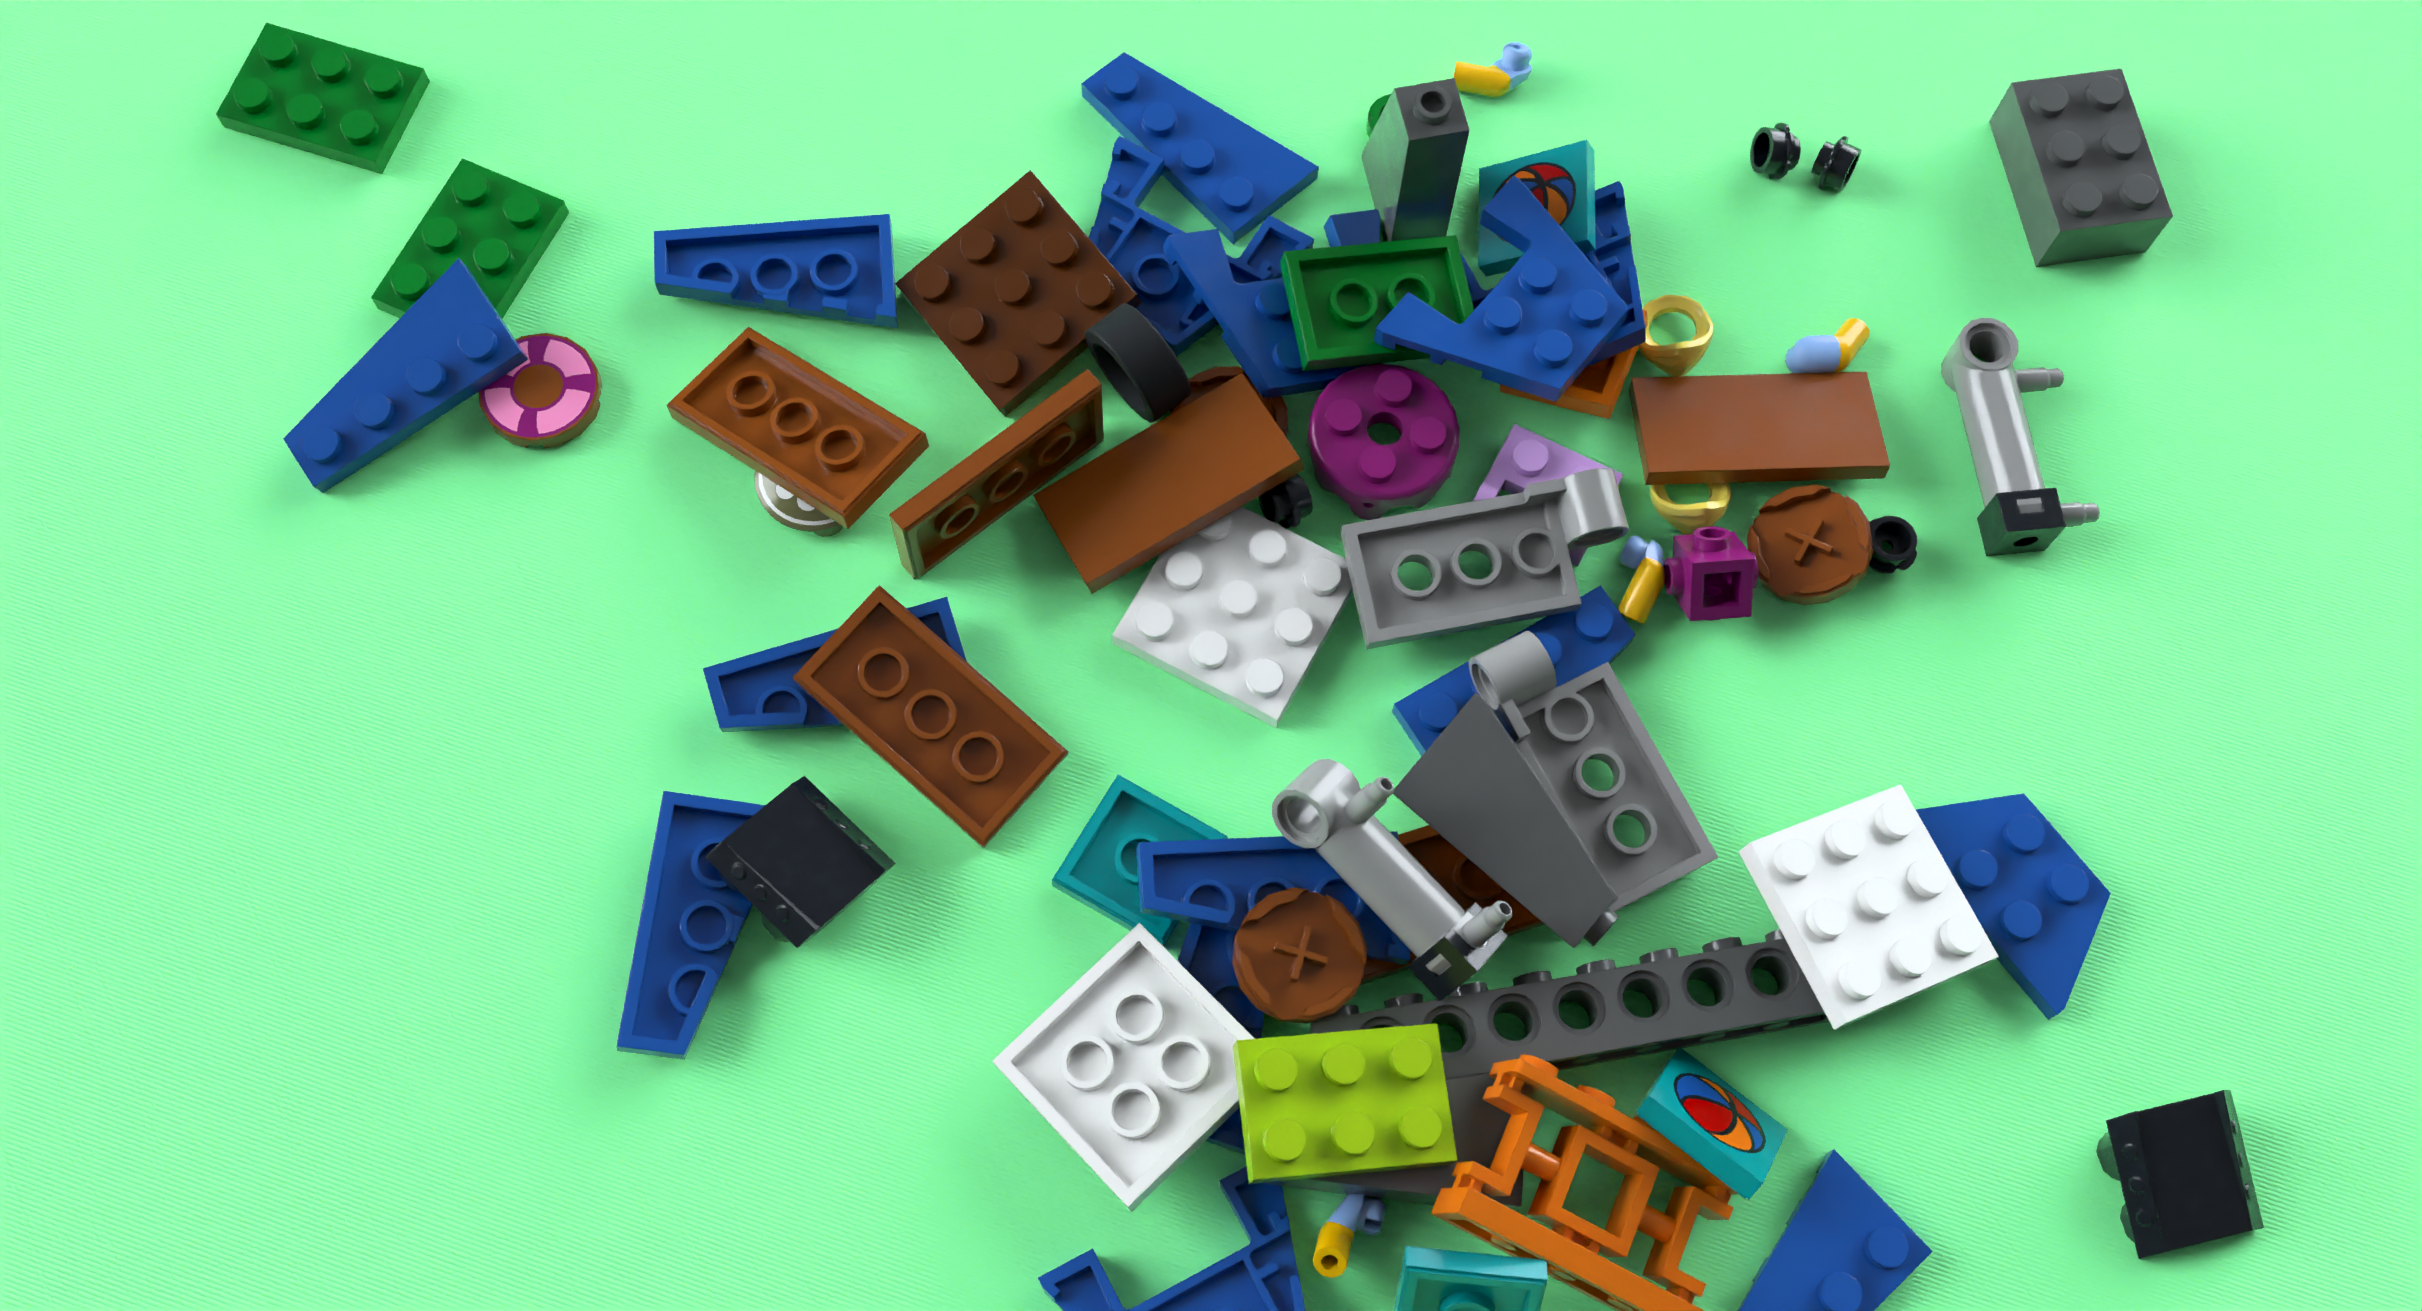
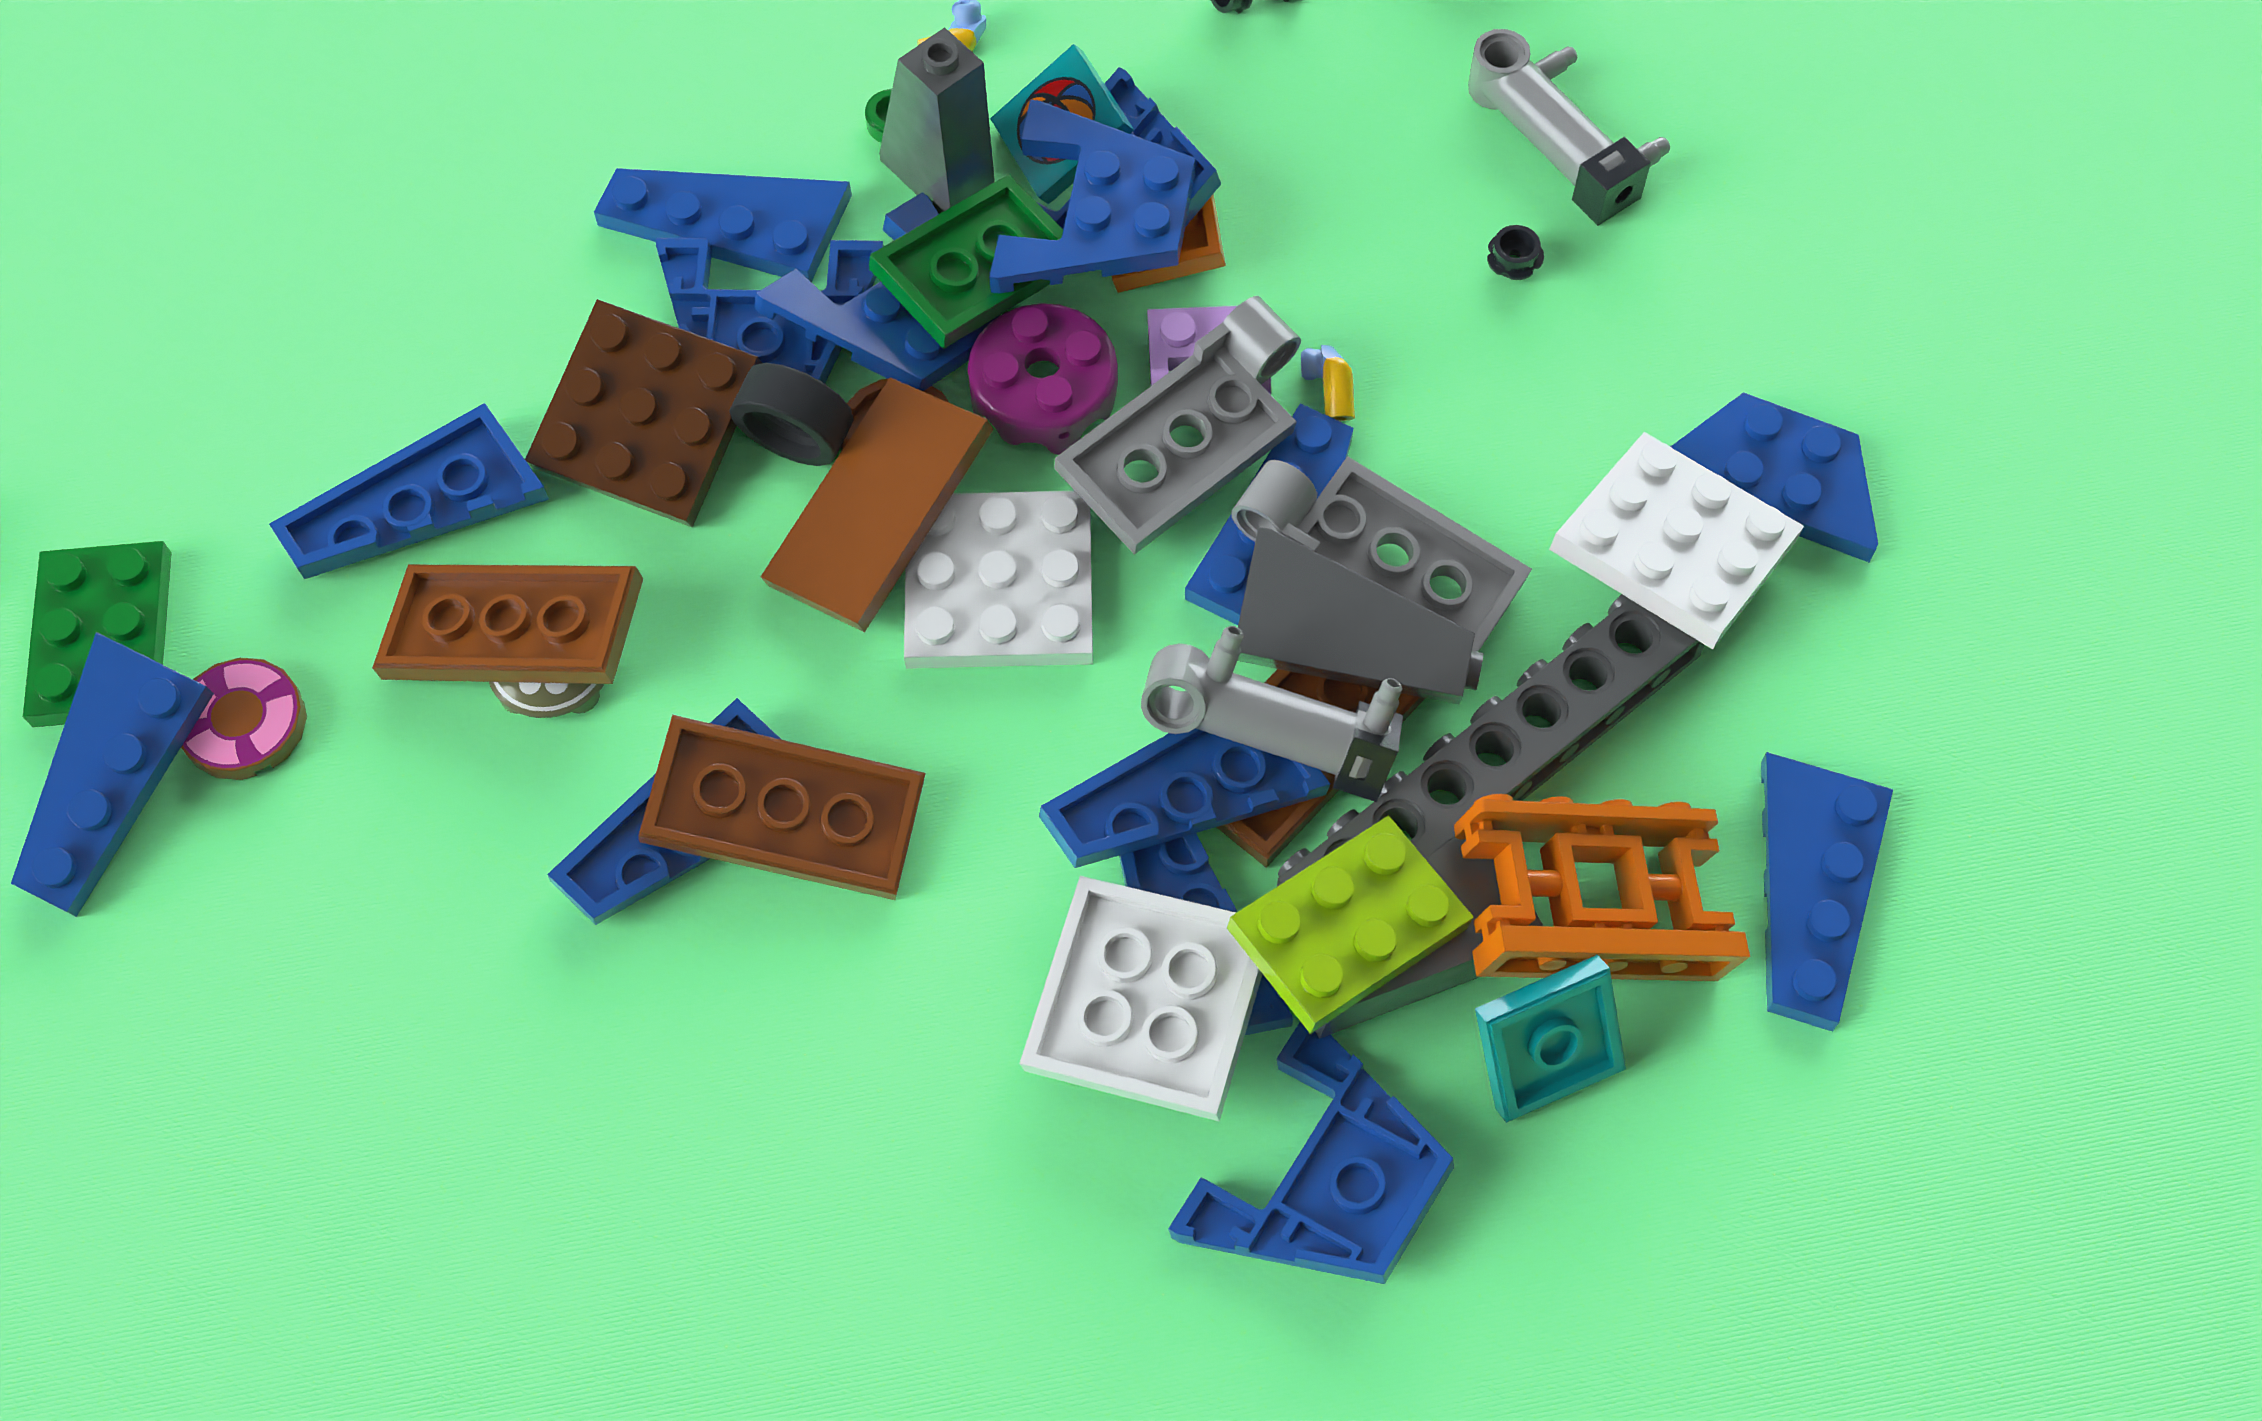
camera: 25 degrees left, 5 degrees down
(684, 926) = (663, 1086): blue wing -> none
(799, 862) = (739, 994): black slope -> none
(999, 475) = (724, 570): dark orange tile -> none
(1104, 860) = (1013, 845): teal tile -> none
(1287, 502) = (991, 469): black plate -> none
(1299, 955) = (1236, 827): dark orange tile -> none
(1337, 1234) = (1403, 1046): arm -> none
(1679, 357) = (1254, 187): light yellow piece -> none
(1692, 516) = (1339, 313): light yellow piece -> none
(1711, 574) = (1389, 345): magenta brick -> none
(1713, 1123) = (1660, 779): teal tile -> none
(1757, 428) = (1352, 213): dark orange tile -> none
(1810, 544) = (1453, 284): dark orange tile -> none
(1828, 352) = (1373, 125): light blue arm -> none
(2181, 1173) = (2044, 622): black slope -> none

